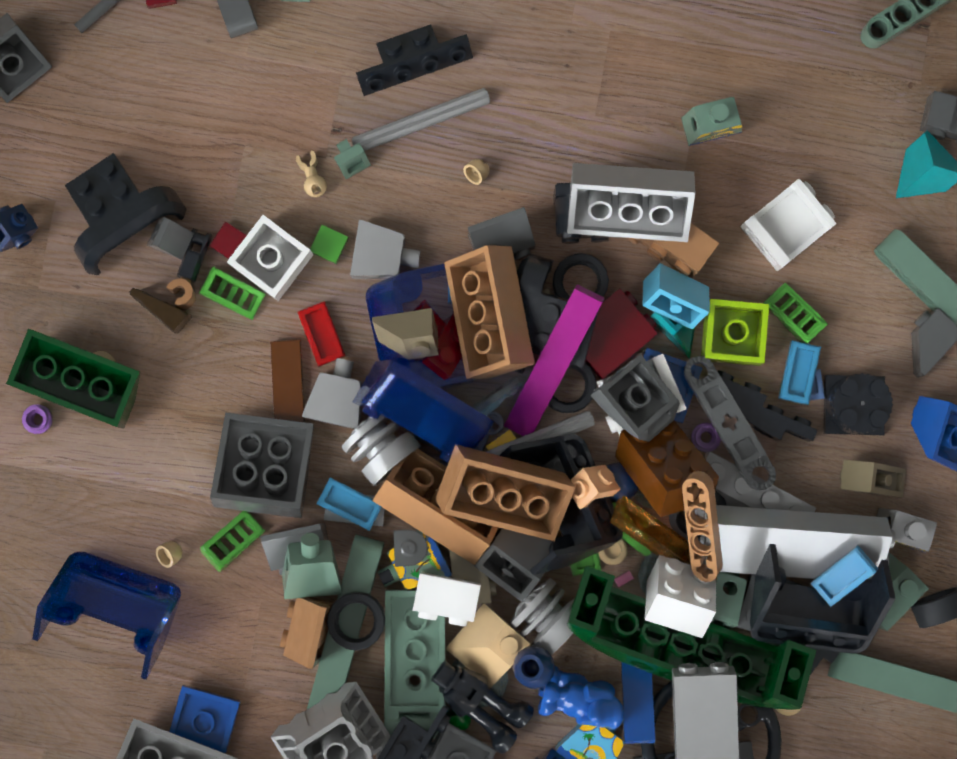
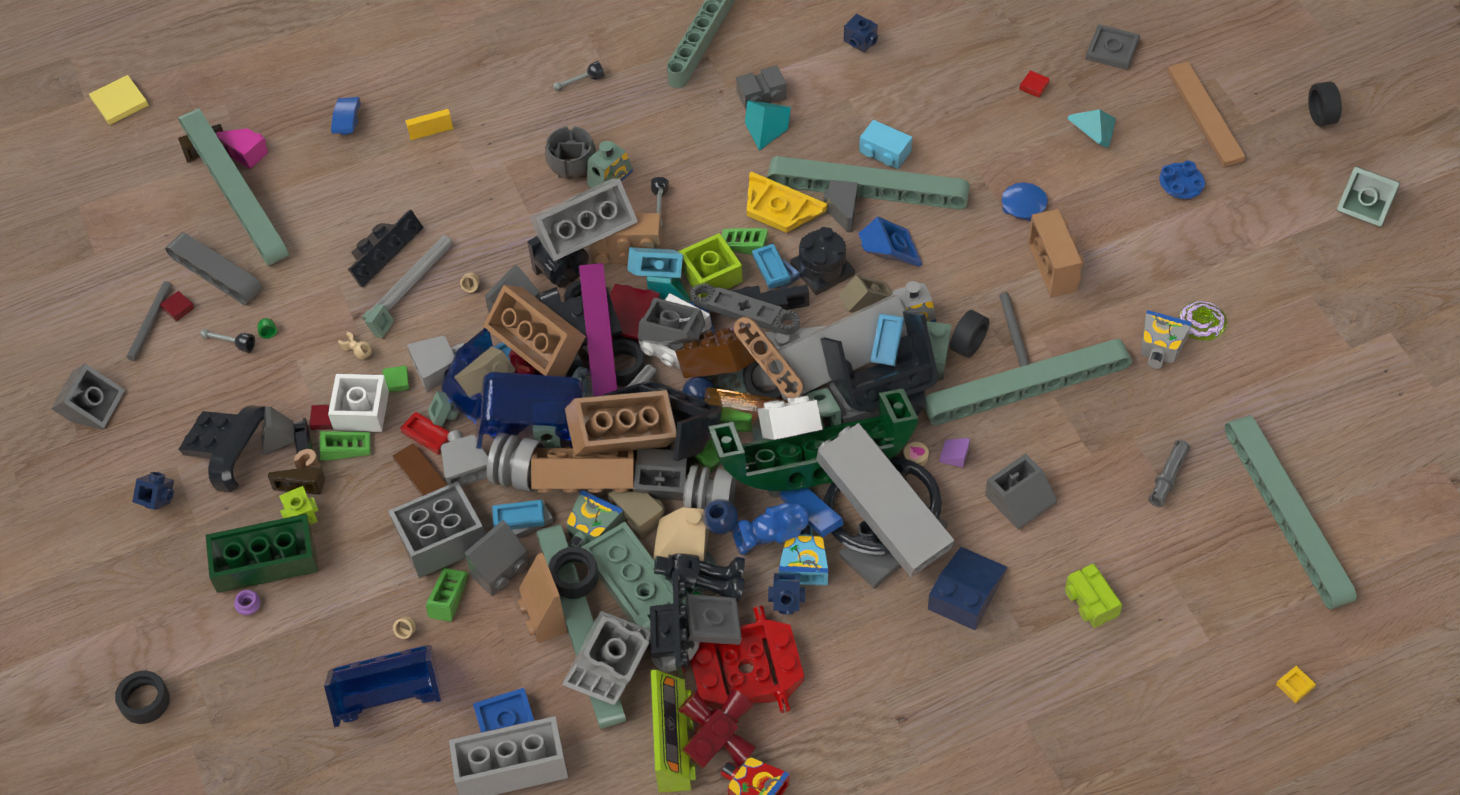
camera: 30 degrees left, 30 degrees down
(133, 341) = (297, 503): none -> lime brick
(199, 89) = (244, 342): none -> black hinge
(234, 86) = (266, 328): none -> green hinge
(310, 569) = (513, 555): sand green torso -> none
(349, 319) = (441, 409): none -> sand green tile
(409, 547) = (579, 510): dark grey piece -> none
(446, 598) = (626, 509): white brick -> none
(593, 484) = (678, 388): light nougat bracket -> none
(694, 58) = (569, 144): none -> dark grey piece
(752, 182) = (659, 187): none -> black hinge
(789, 224) = (701, 196): white panel -> none
(827, 725) = (955, 452): none -> medium lavender slope
(864, 293) = (780, 205): none -> yellow wing

